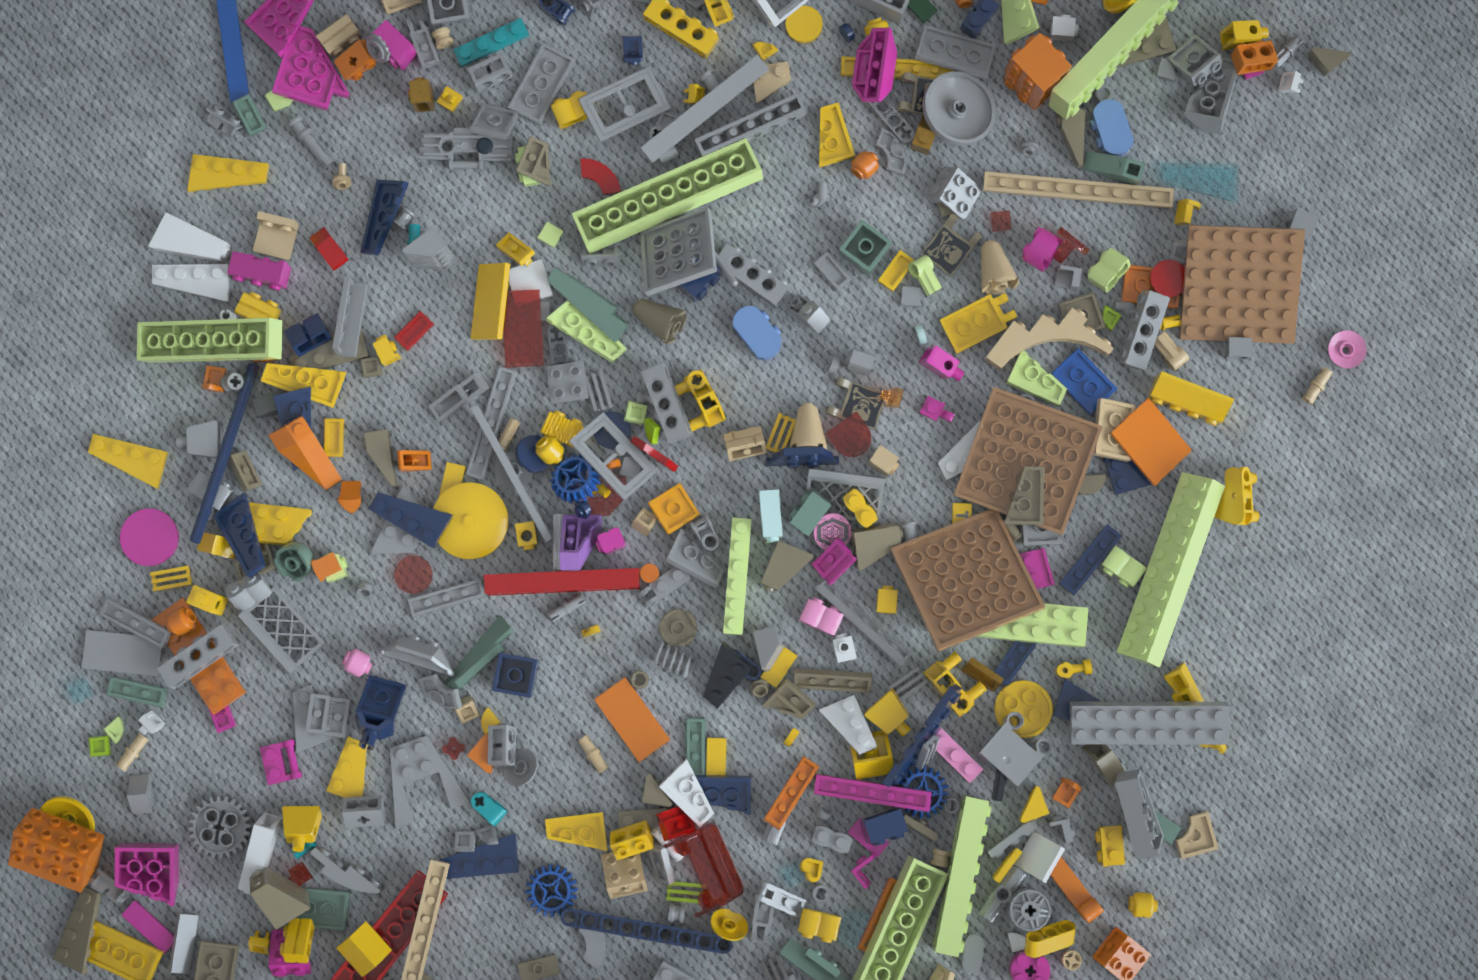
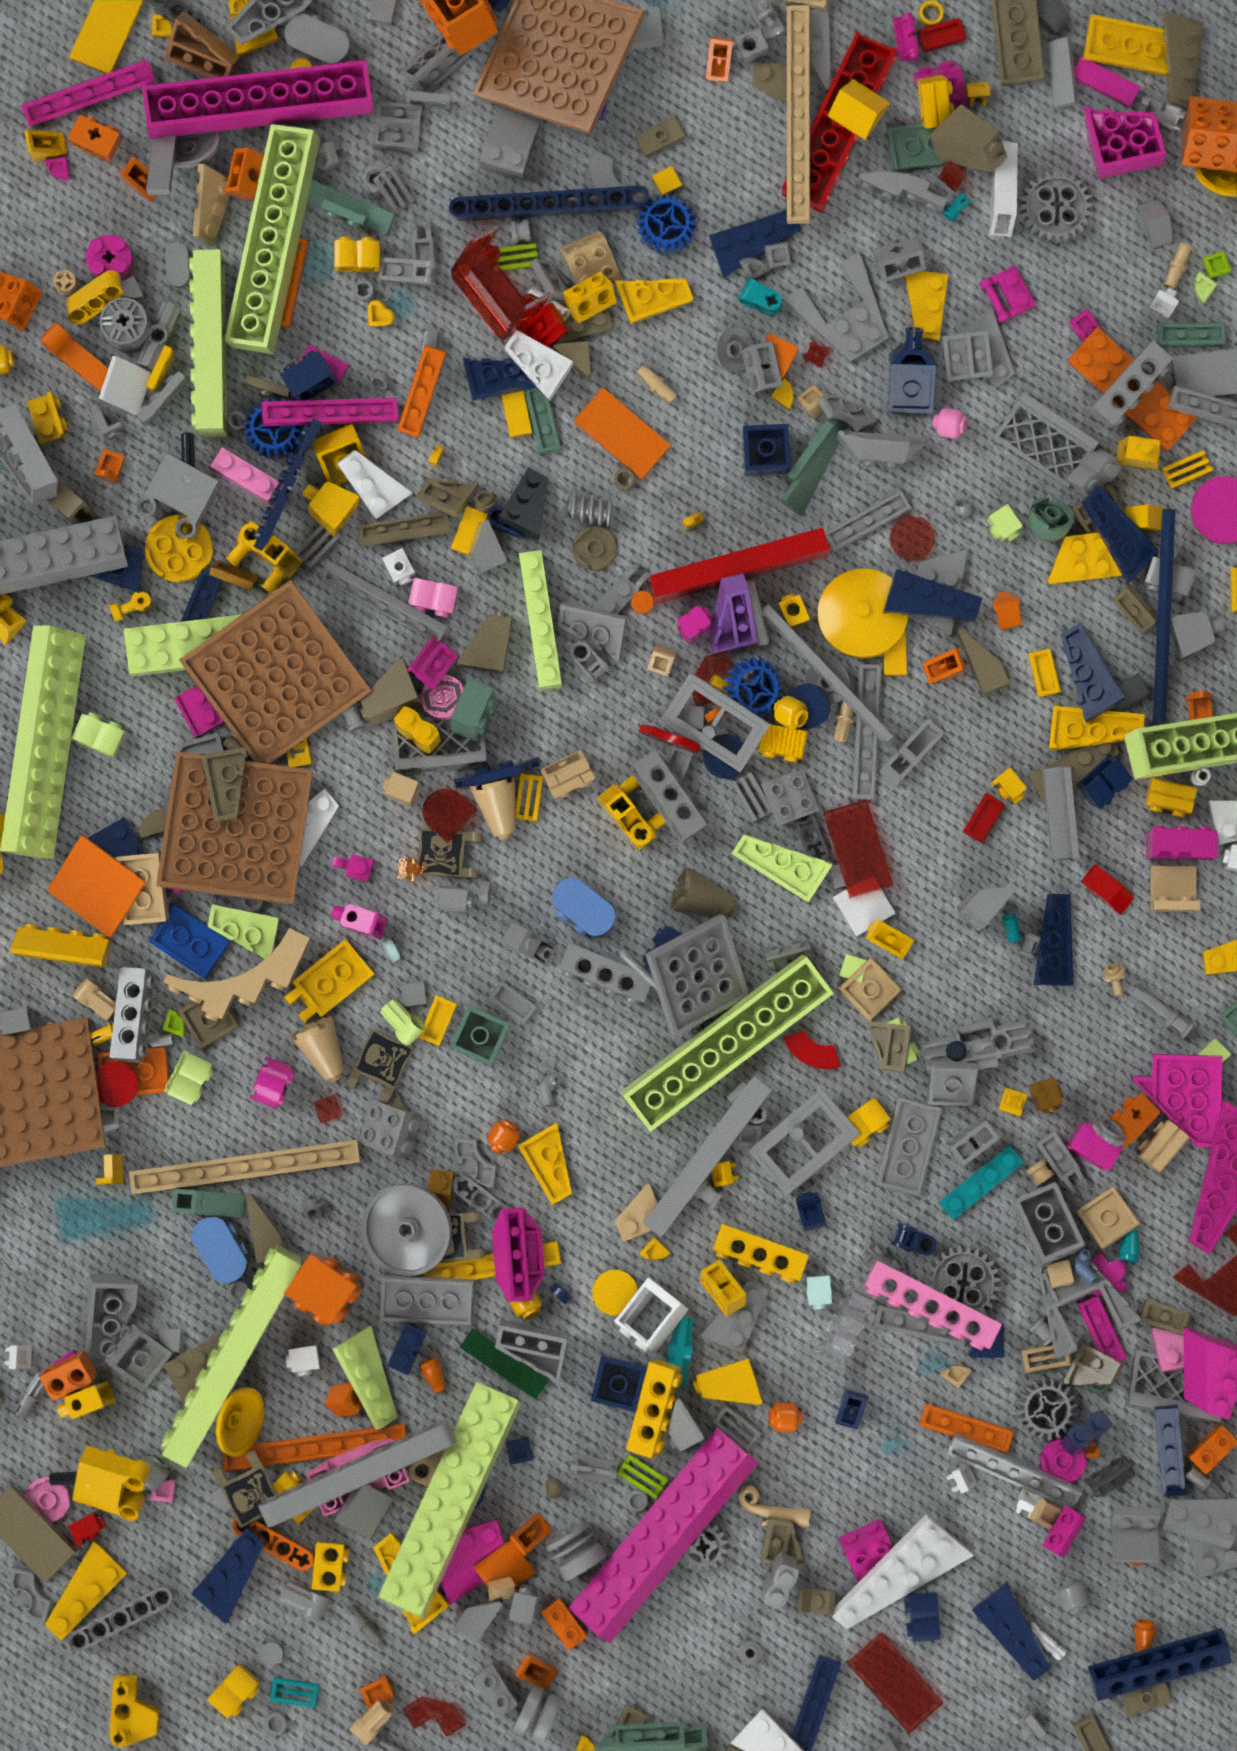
camera: 165 degrees right, 0 degrees up
(181, 621) = (1160, 419): orange head -> none
(234, 377) = (1171, 707): light grey bush -> none
(301, 825) = (965, 228): yellow torso -> none
(302, 448) = (1075, 648): orange wedge -> none
(326, 566) = (1012, 519): orange tile -> none
(371, 367) = (1022, 764): dark tan tile -> none
(490, 301) = (903, 870): yellow tile -> none
(538, 212) = (873, 992): none -> tan tile
(542, 928) = (667, 181): none -> yellow tile
(567, 607) = (727, 541): light grey pin -> none
(582, 509) = (735, 651): dark blue plate -> none
(590, 303) = (786, 896): sand green wedge -> none
(635, 413) = (702, 781): yellowish green tile -> none
(652, 430) = (678, 763): lime tile -> none
(673, 508) = (632, 682): light orange tile -> none
(729, 924) = (454, 237): yellow dish -> none
(753, 125) = (648, 1148): light grey brick -> none
(770, 515) = (518, 696): light aqua window -> none
(836, 840) = (357, 351): light grey brick -> none
(858, 873) = (327, 326): dark pink bracket -> none
(886, 600) = (362, 633): yellow brick -> none
(927, 752) = (277, 470): light grey tile -> none
(940, 858) = (236, 360): tan wheel -> none
(1034, 807) = (143, 440): yellow slope -> none
(1068, 246) = (239, 1098): clear red tile -> none
(1068, 277) = (234, 1058): light grey panel -> none
(1090, 559) = (138, 735): dark blue plate -> none

